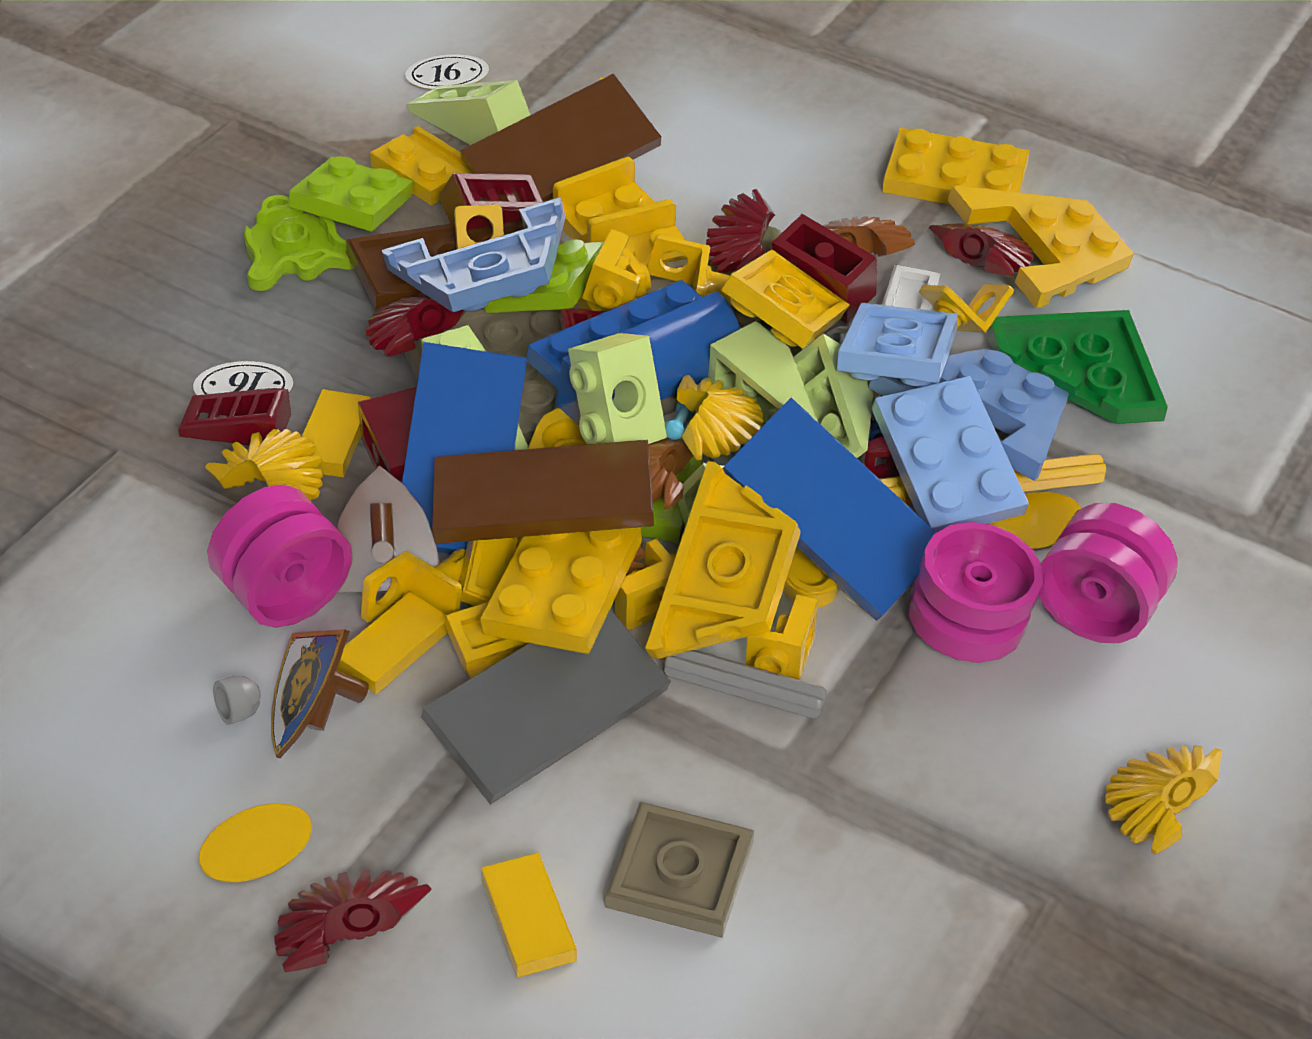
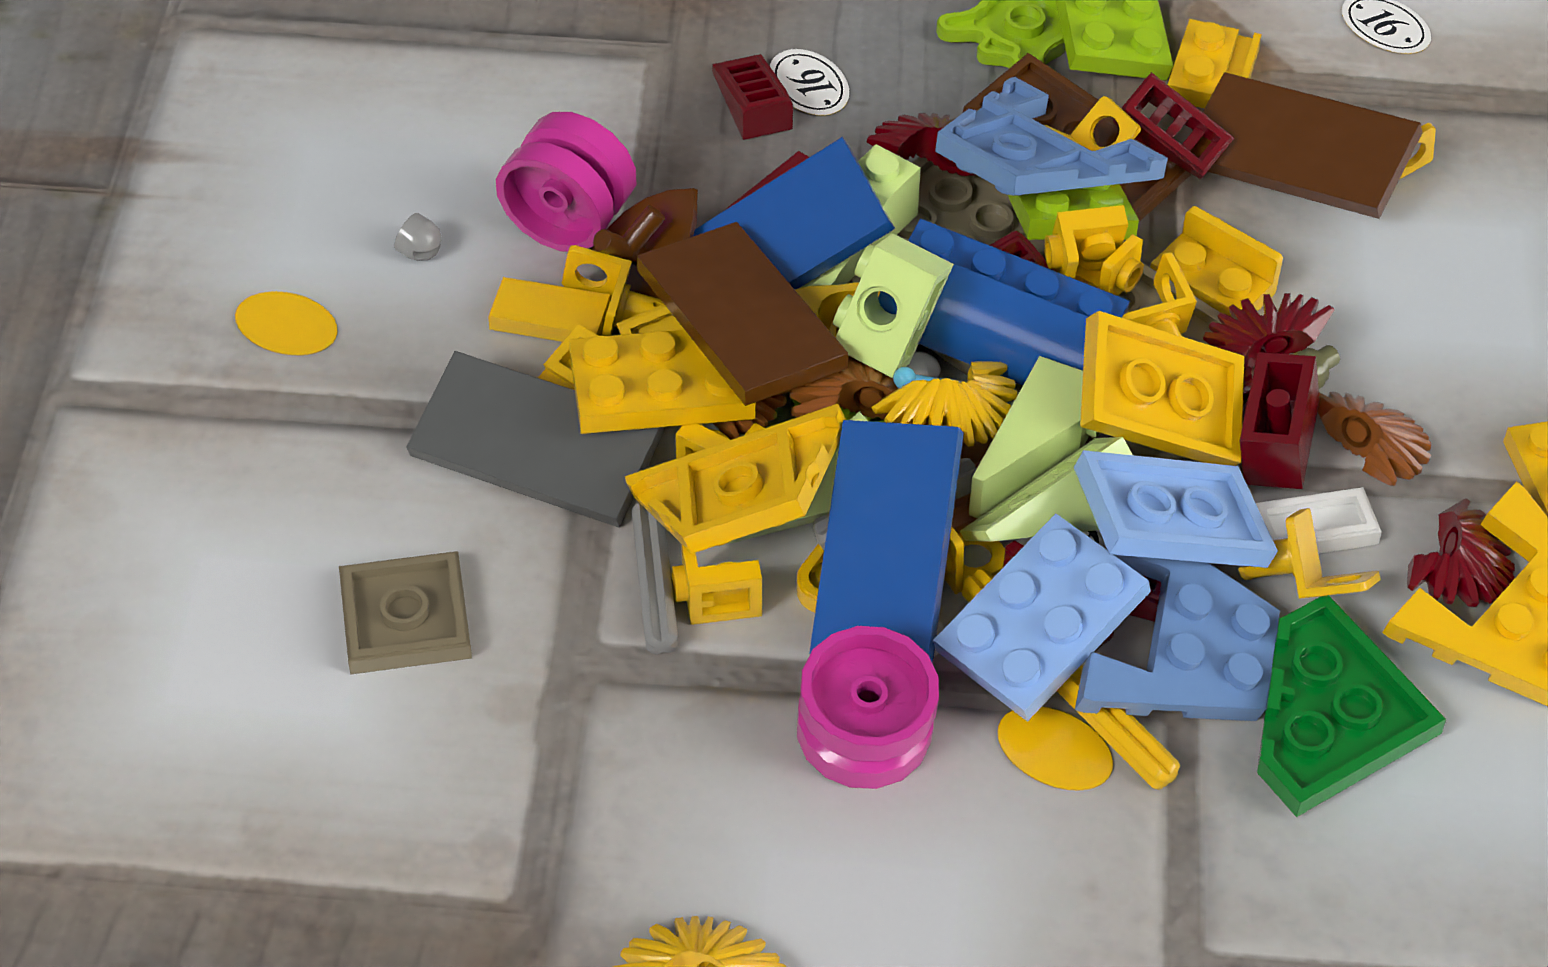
camera: 65 degrees right, 5 degrees up
(277, 460) = (696, 141): yellow hair -> none
(309, 686) = (460, 284): shield -> none
(335, 430) = (754, 161): yellow tile -> none
(343, 913) = (238, 401): dark red hair -> none
(472, 109) = (1314, 56): yellowish green slope -> none
(528, 915) = (295, 524): yellow tile -> none
(597, 194) = (1268, 210): yellow bracket -> none
(1107, 572) = (956, 806): dark pink wheel -> none

